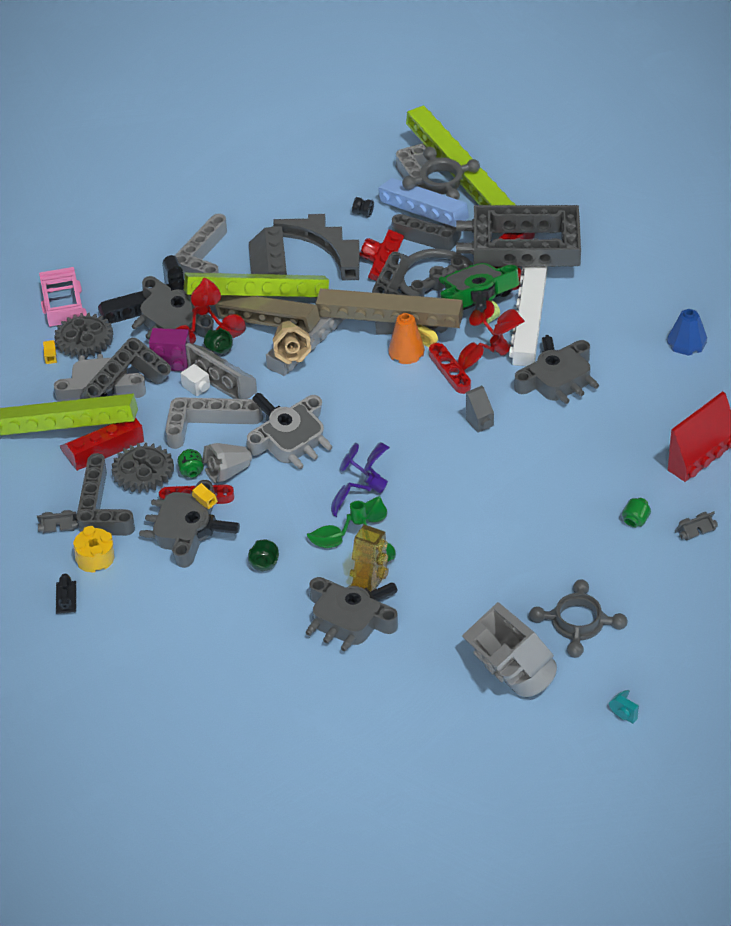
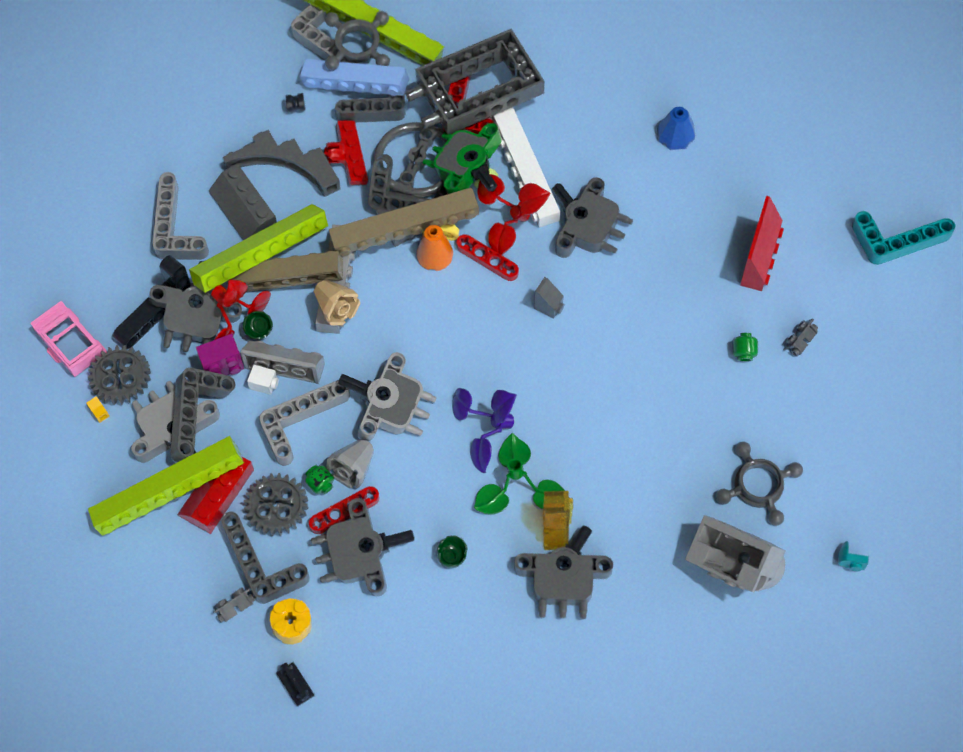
camera: 30 degrees left, 20 degrees up
(204, 496) = (367, 520): yellow piece -> none

